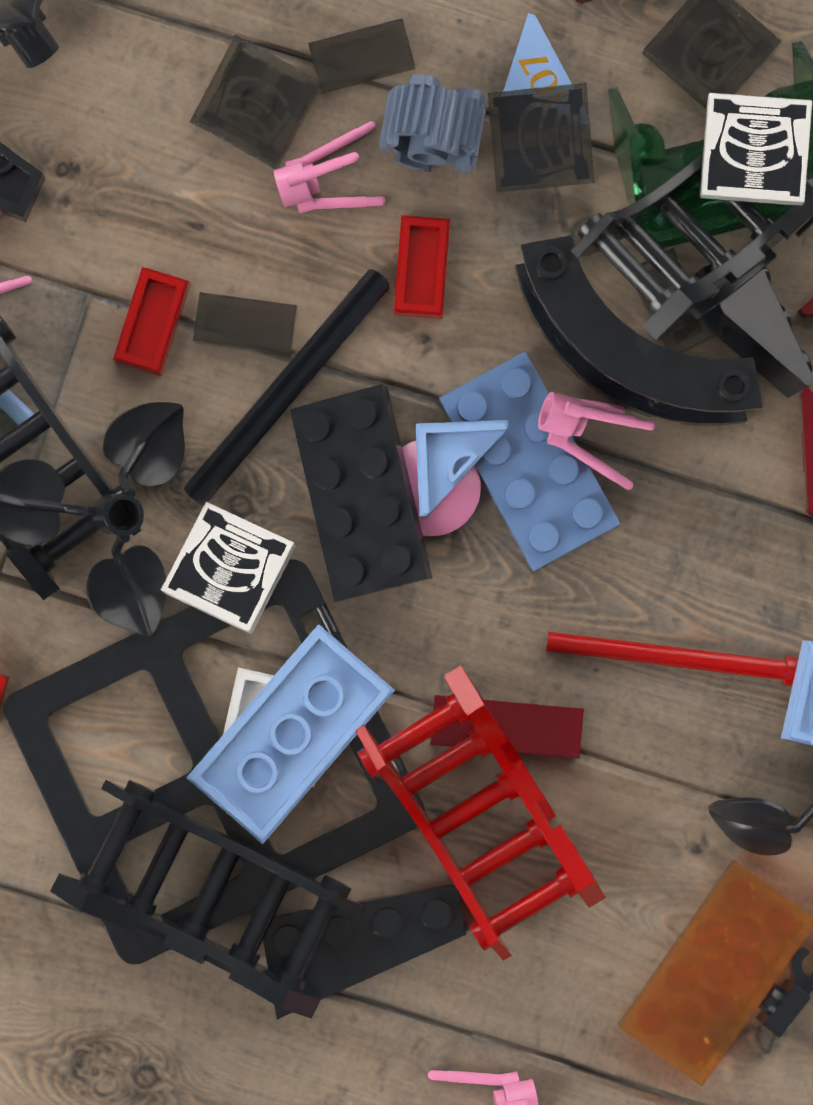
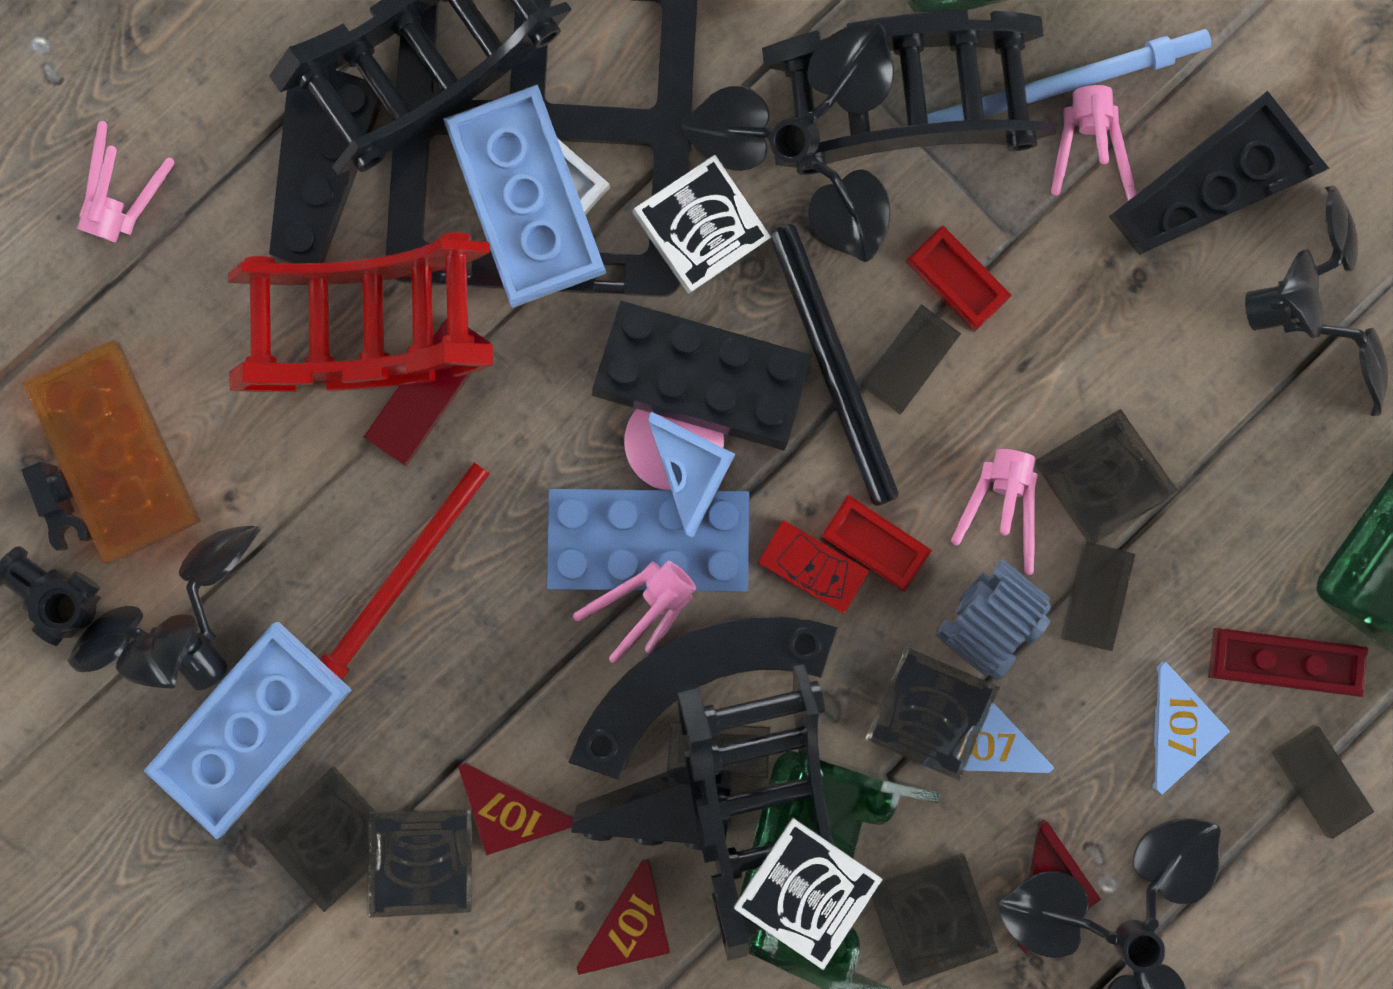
camera: 120 degrees right, 0 degrees up
(472, 308) = (813, 567): none -> red tile

